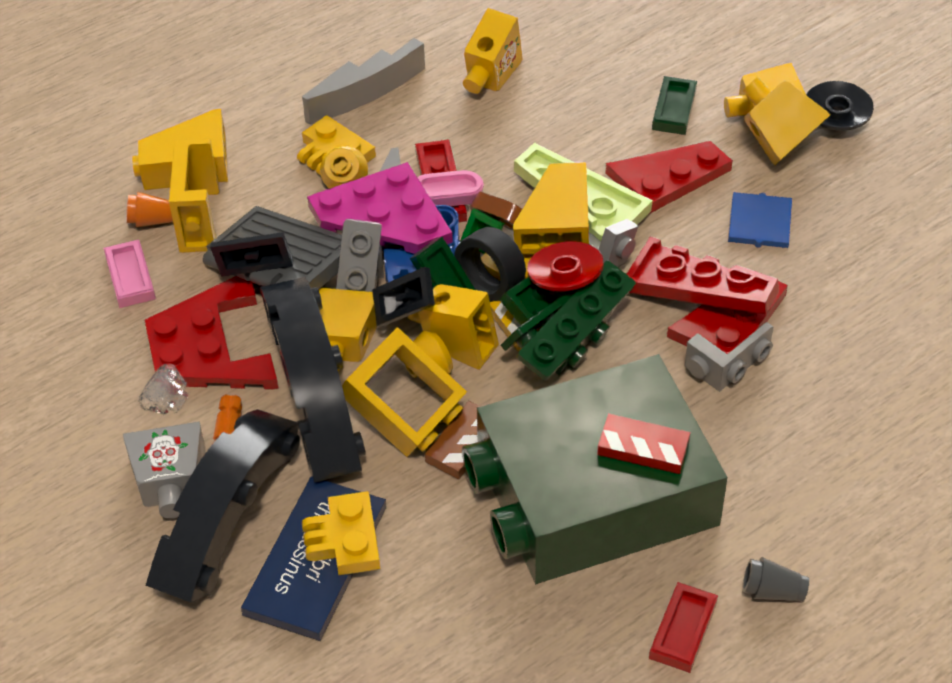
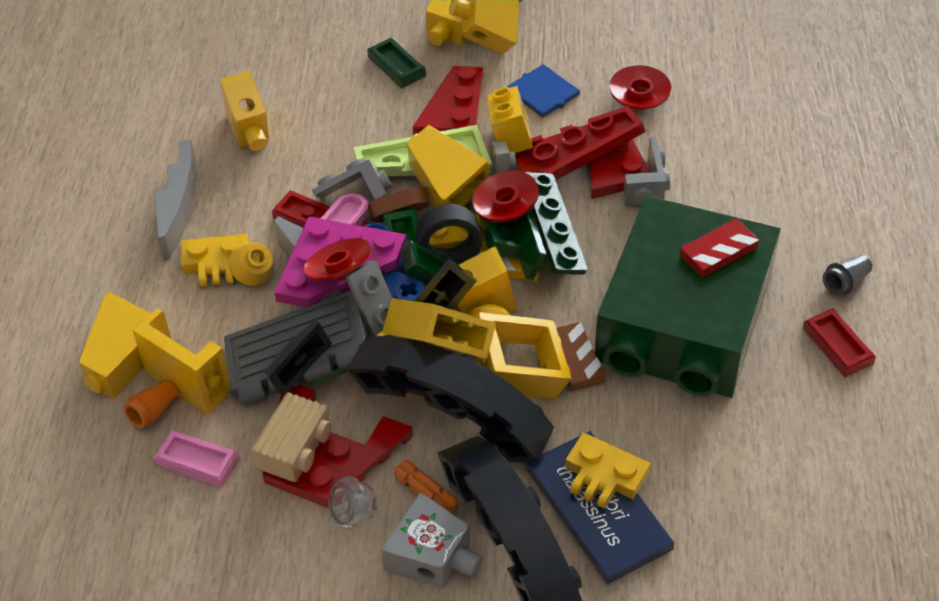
camera: 50 degrees left, 0 degrees up
(179, 307) = (291, 437): none -> tan brick
(351, 314) = (439, 327): none -> yellow slope
(362, 204) = (337, 259): none -> red dish
(506, 172) = (377, 181): none -> light grey bracket
(673, 215) = (509, 119): none -> yellow brick
(836, 280) = (640, 87): none -> red dish

